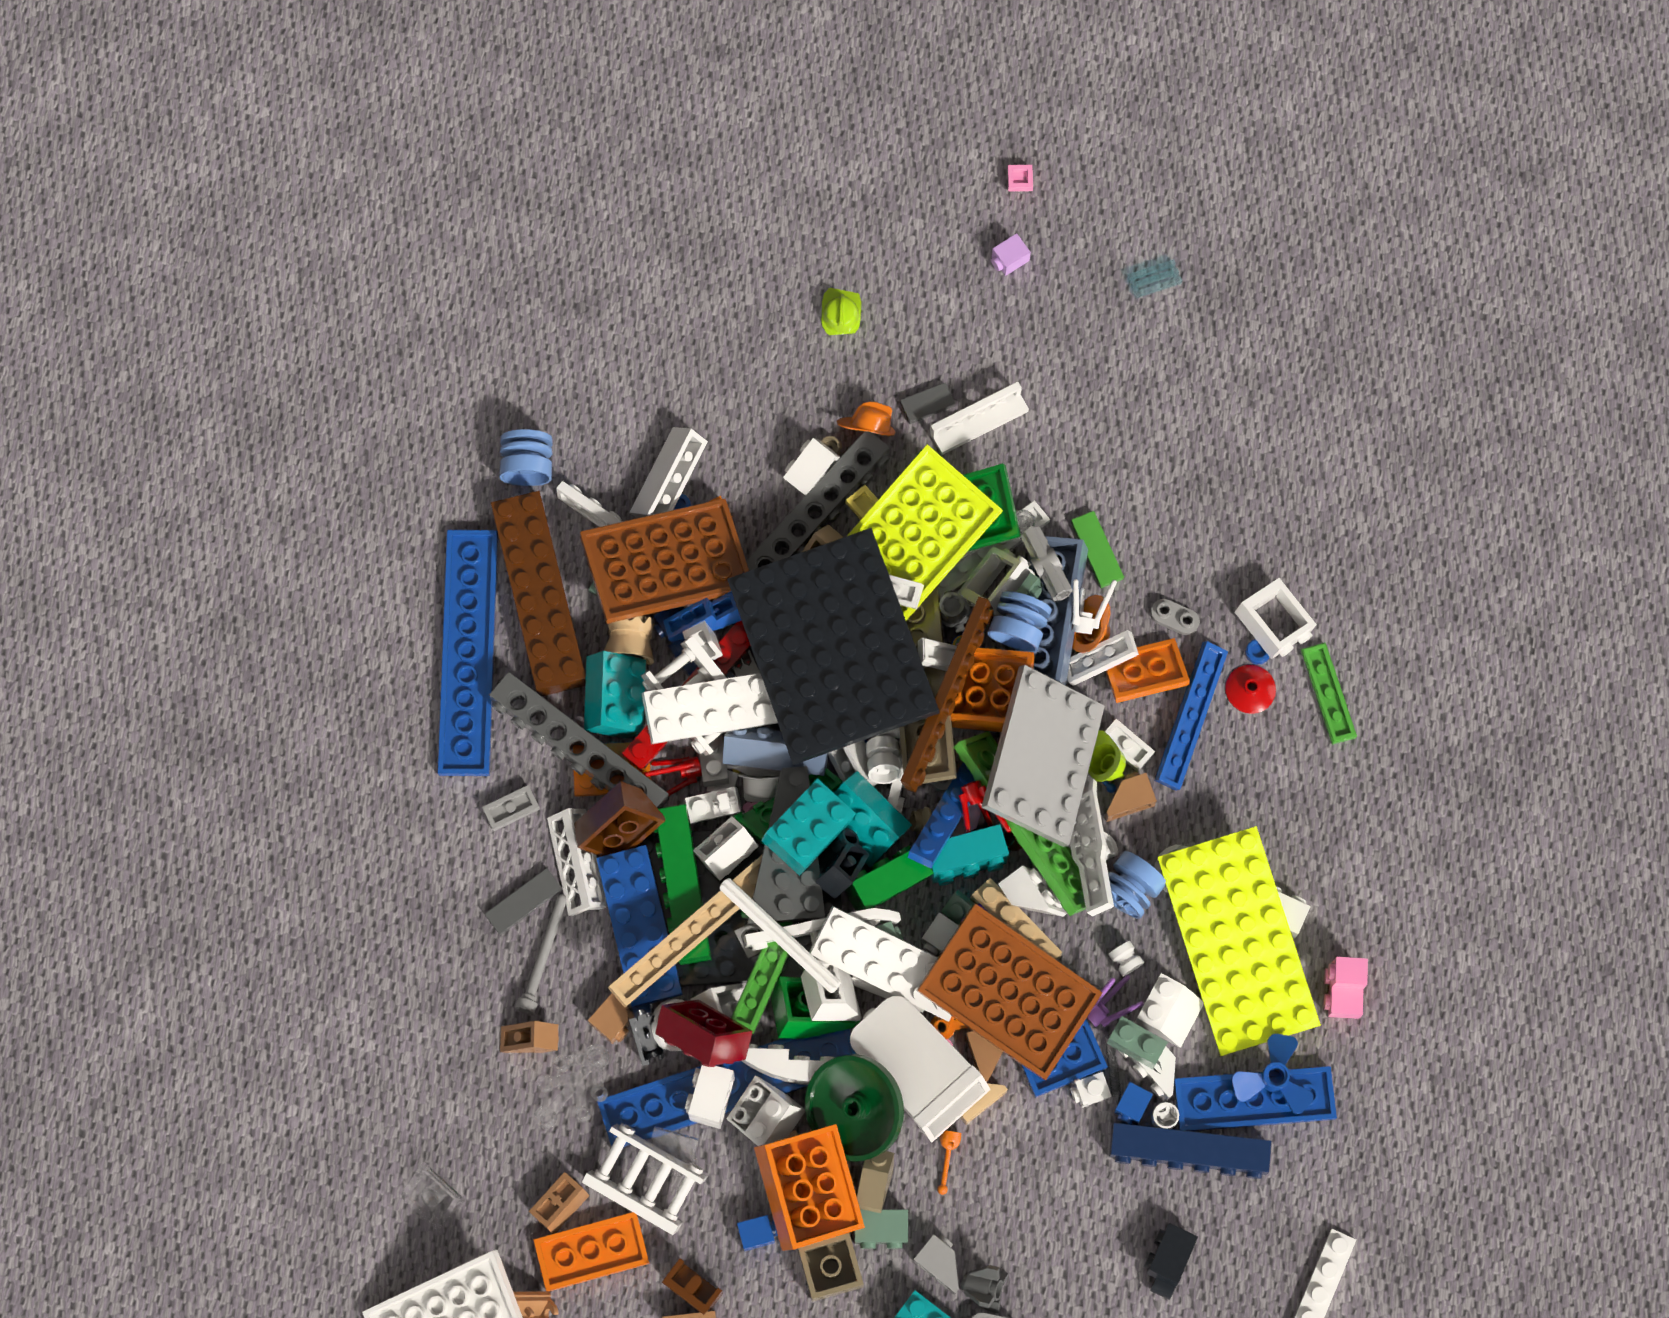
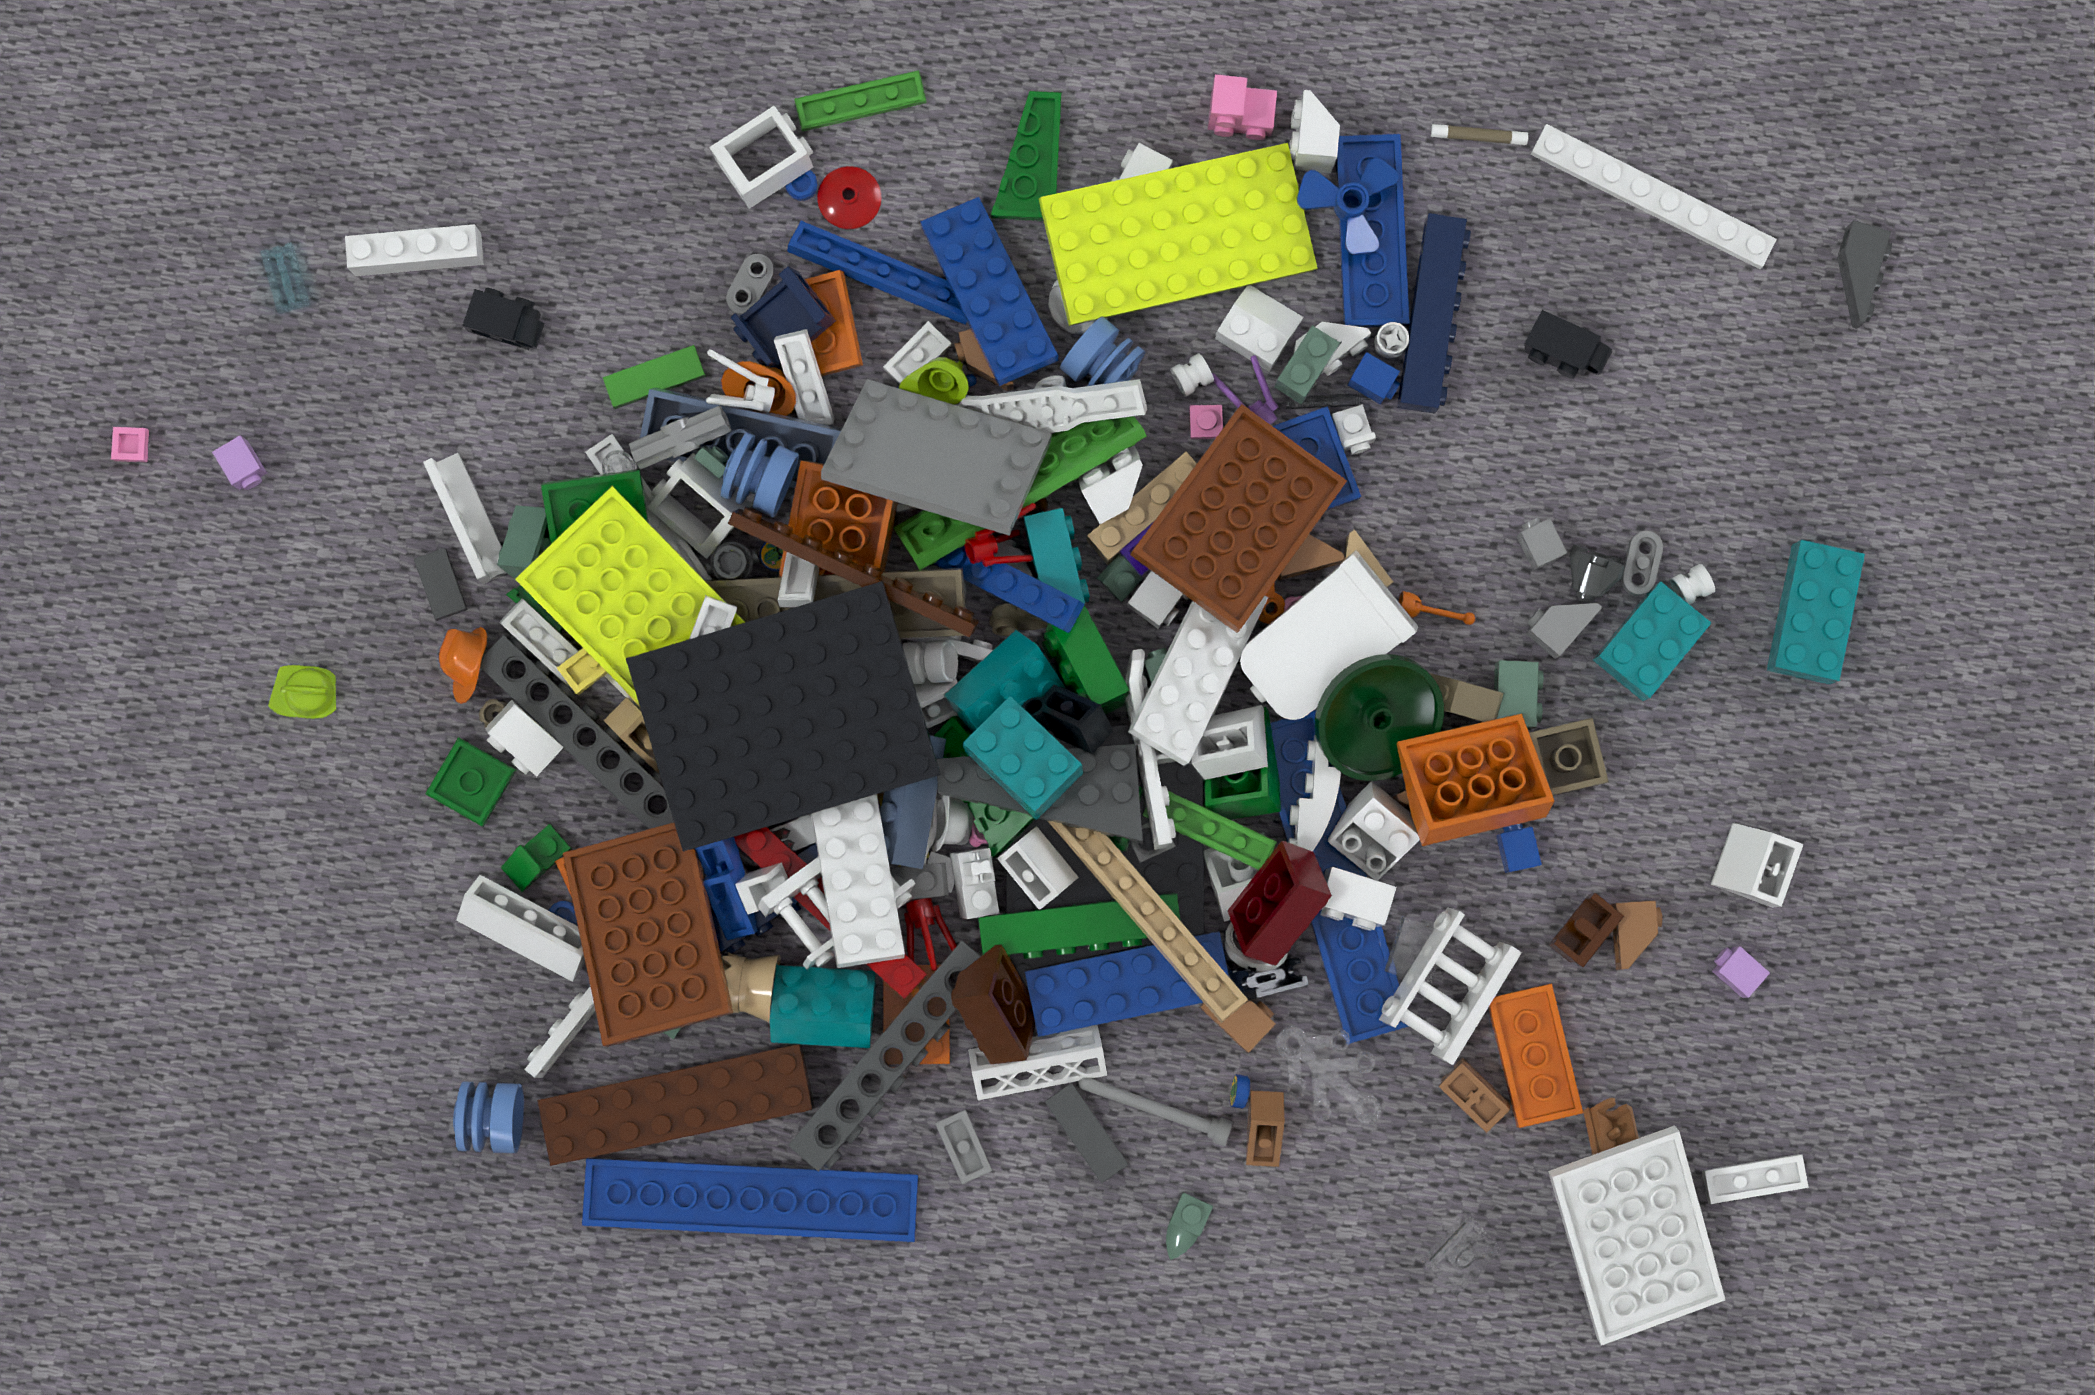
camera: 90 degrees left, 10 degrees up
(454, 981) = (1186, 1224): none -> sand green plate
(557, 1017) = (1240, 1091): none -> blue tile
(722, 483) = (535, 857): none -> green slope
(778, 432) = (470, 782): none -> green plate
(779, 935) = (1163, 800): white axle -> none
(889, 470) = (538, 637): none -> white plate
(963, 457) = (524, 540): none -> sand green brick
(1006, 1244) = (1541, 543): none -> light grey brick
(1091, 971) = (1205, 421): none -> bright pink plate
(1133, 435) = (504, 319): none -> black hinge
(1153, 639) = (782, 310): none -> dark blue panel
(1181, 795) = (989, 291): none -> blue plate
(1182, 368) = (414, 250): none -> white brick
(1291, 827) = (1032, 160): none -> green wing
(1324, 1045) = (1316, 135): none -> white slope
(1343, 1185) = (1479, 134): none -> dark tan bar

